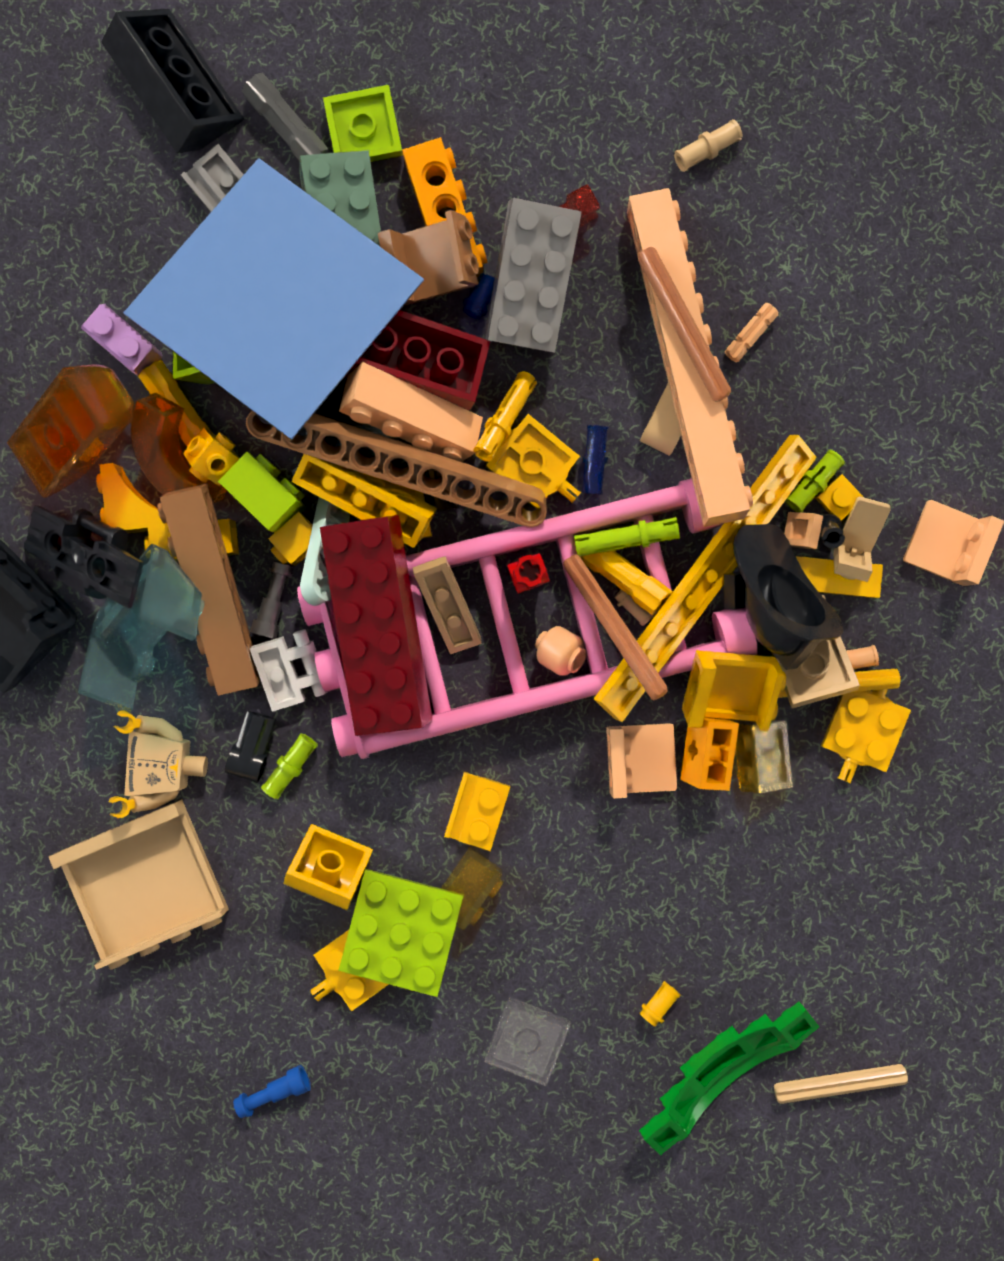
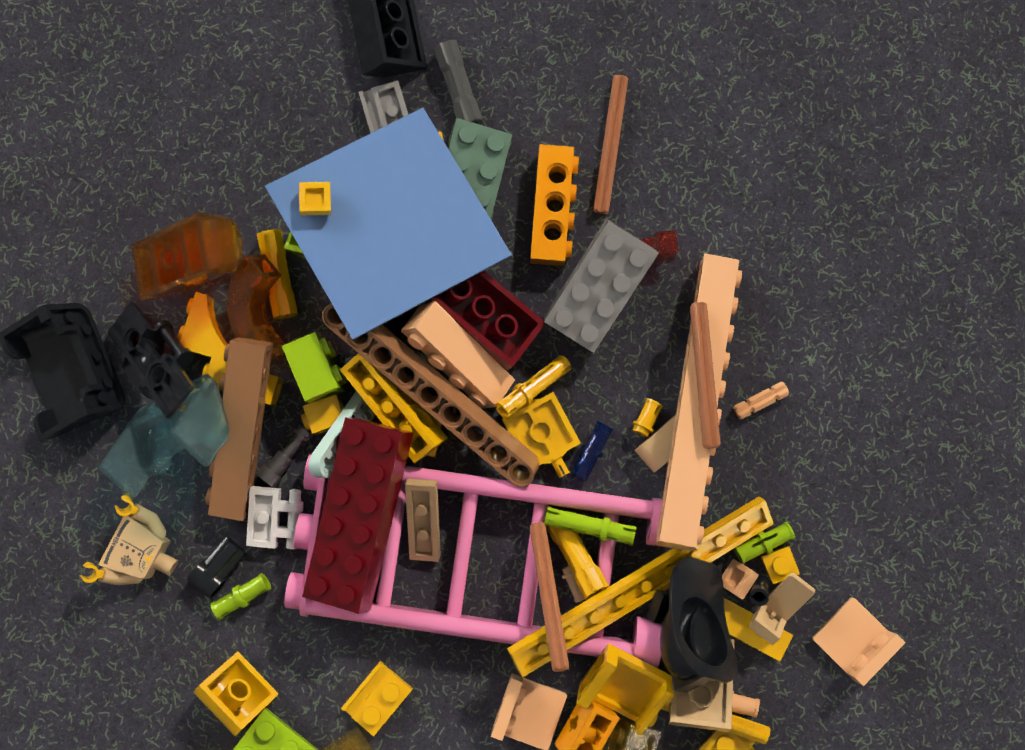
camera: 30 degrees right, 5 degrees down
(121, 339) = (256, 201): lavender brick -> none
(142, 884) = (80, 643): tan panel -> none
(184, 302) = (315, 198): none -> yellow plate
(210, 456) = (285, 322): yellow brick -> none
(364, 122) = (518, 110): lime plate -> none
(437, 254) = (530, 237): medium nougat panel -> none
(478, 120) = (610, 144): none -> nougat axle
(479, 298) = (553, 283): clear blue pin -> none
(528, 573) = (498, 522): red piece -> none
(560, 650) = (499, 595): light nougat head -> none
(639, 401) = (647, 418): none -> yellow pin
(708, 145) = (785, 237): tan pin -> none

